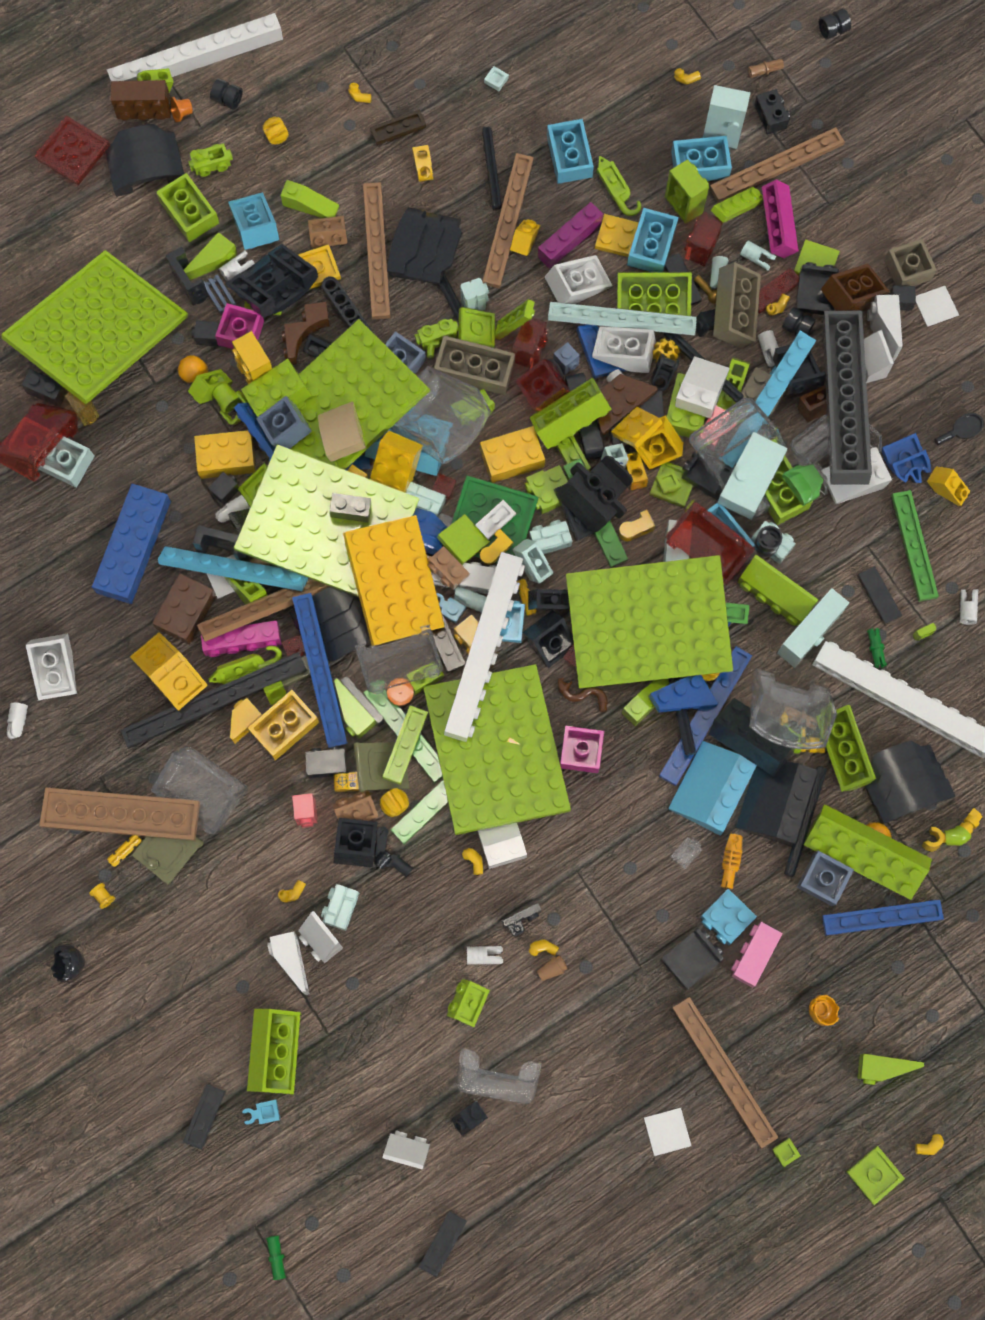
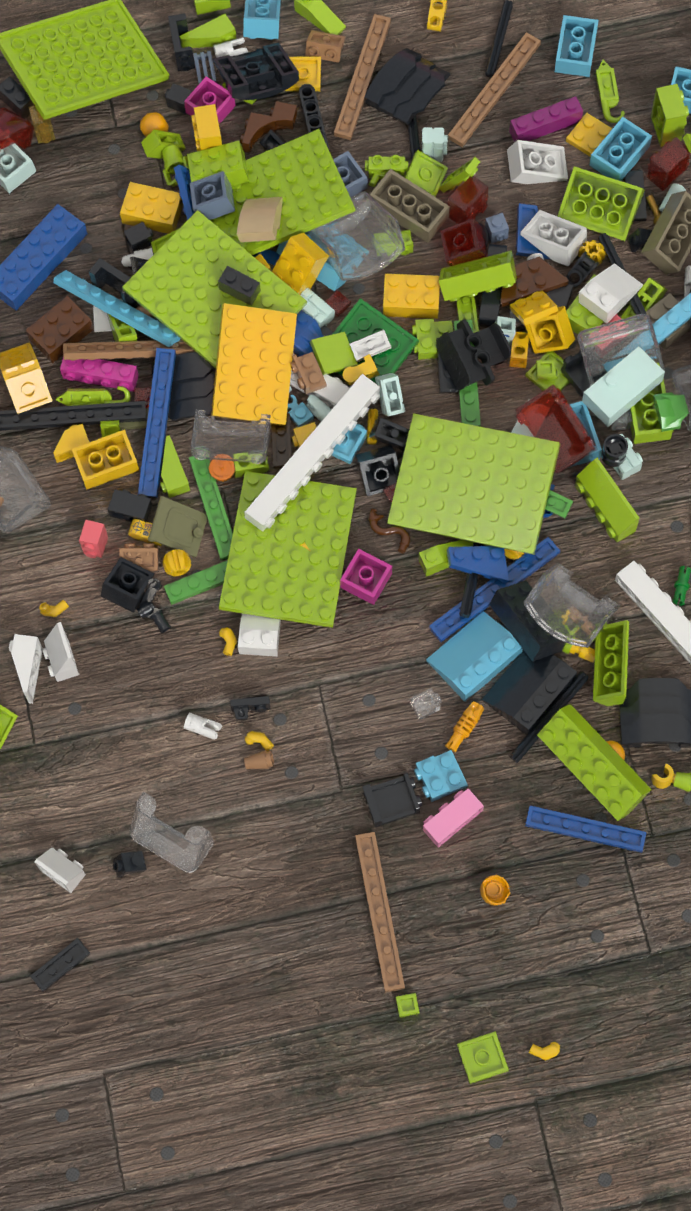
camera: 25 degrees right, 5 degrees down
(340, 907) = (90, 636): light aqua brick -> none
(363, 700) = (185, 464): tile -> none
(405, 745) = (206, 514): lime plate -> none
(467, 1002) = (170, 762): lime bracket -> none
(525, 237) = (503, 108): yellow slope -> none
(551, 537) = (417, 381): light aqua brick -> none
(622, 318) = (563, 209): light aqua plate -> none
(635, 529) = (500, 400): yellow leg -> none
(667, 1131) = (305, 945): white sticker -> none
(813, 628) = (626, 544): light aqua brick -> none
(825, 878) = (544, 772): sand blue brick -> none
(879, 1068) = (529, 963): lime slope -> none

